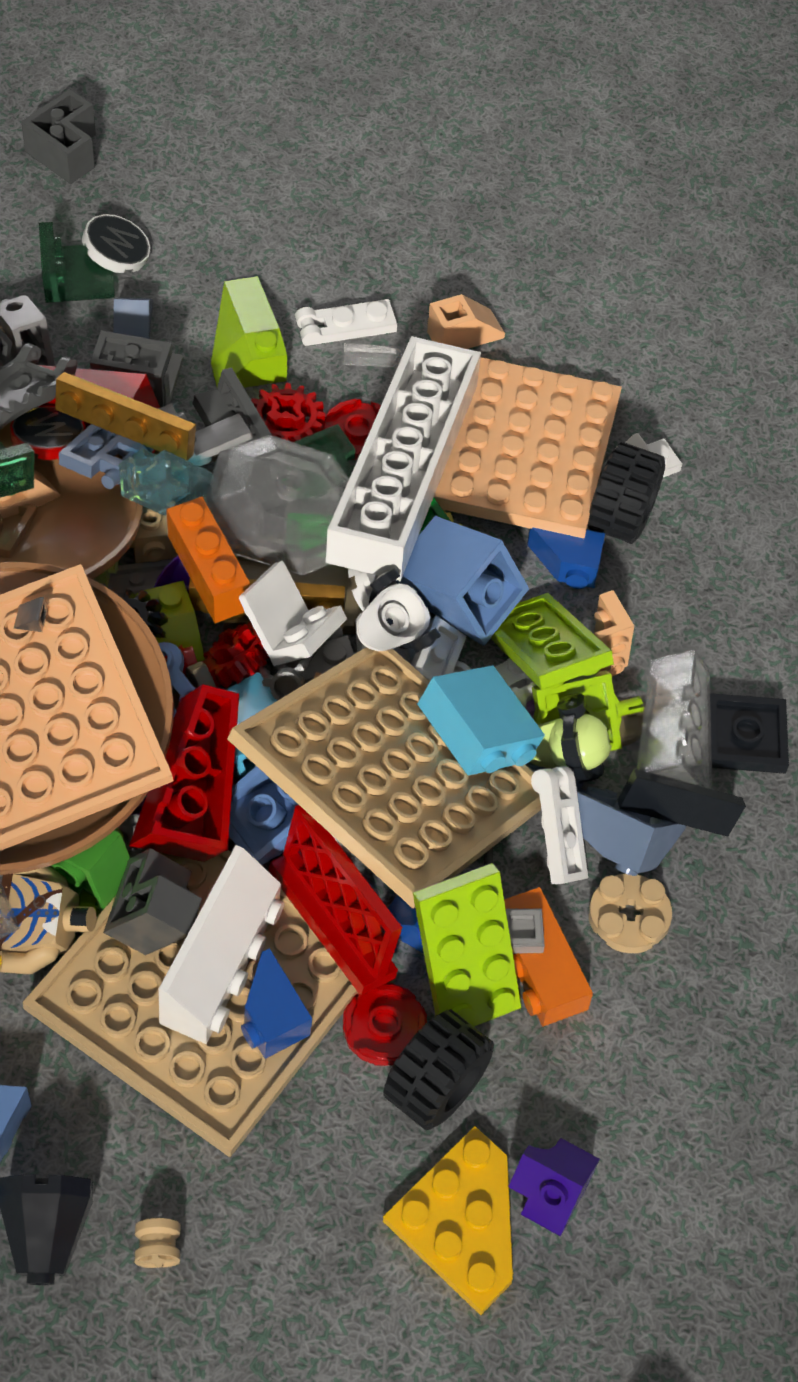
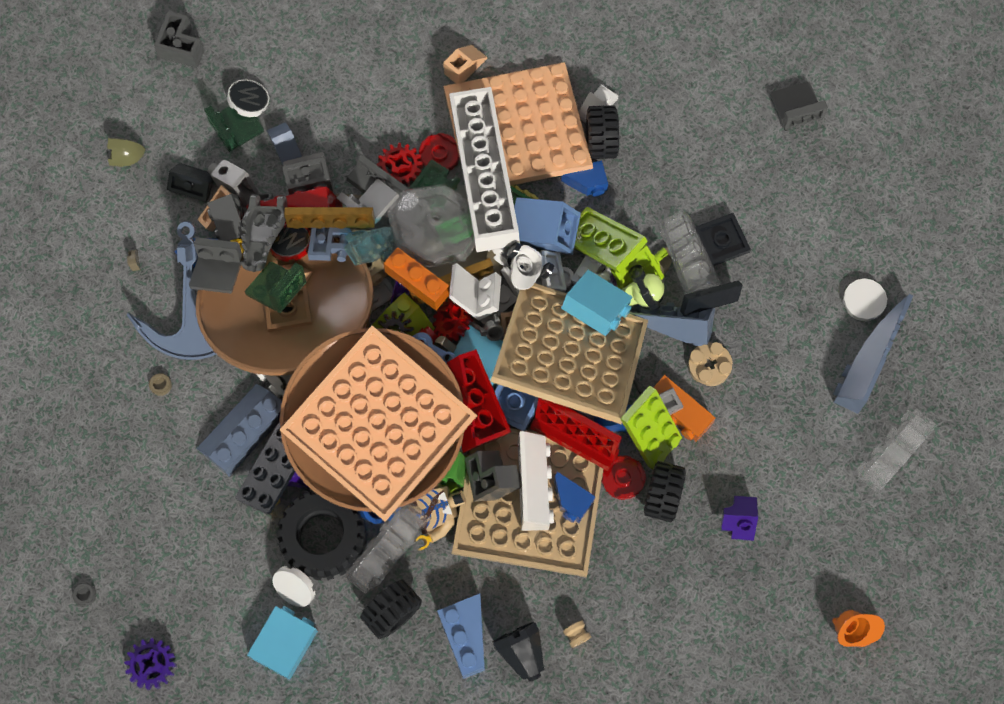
camera: 20 degrees left, 15 degrees up
(31, 615) = (363, 366): flat silver piece -> none
(248, 336) = (350, 122): lime wedge -> none
(345, 322) = (398, 88): white plate -> none
(373, 355) = (427, 102): clear tile -> none
(462, 1220) = (706, 554): yellow plate -> none
(561, 824) = (659, 337): white plate -> none
(614, 630) = (633, 217): light nougat bracket -> none

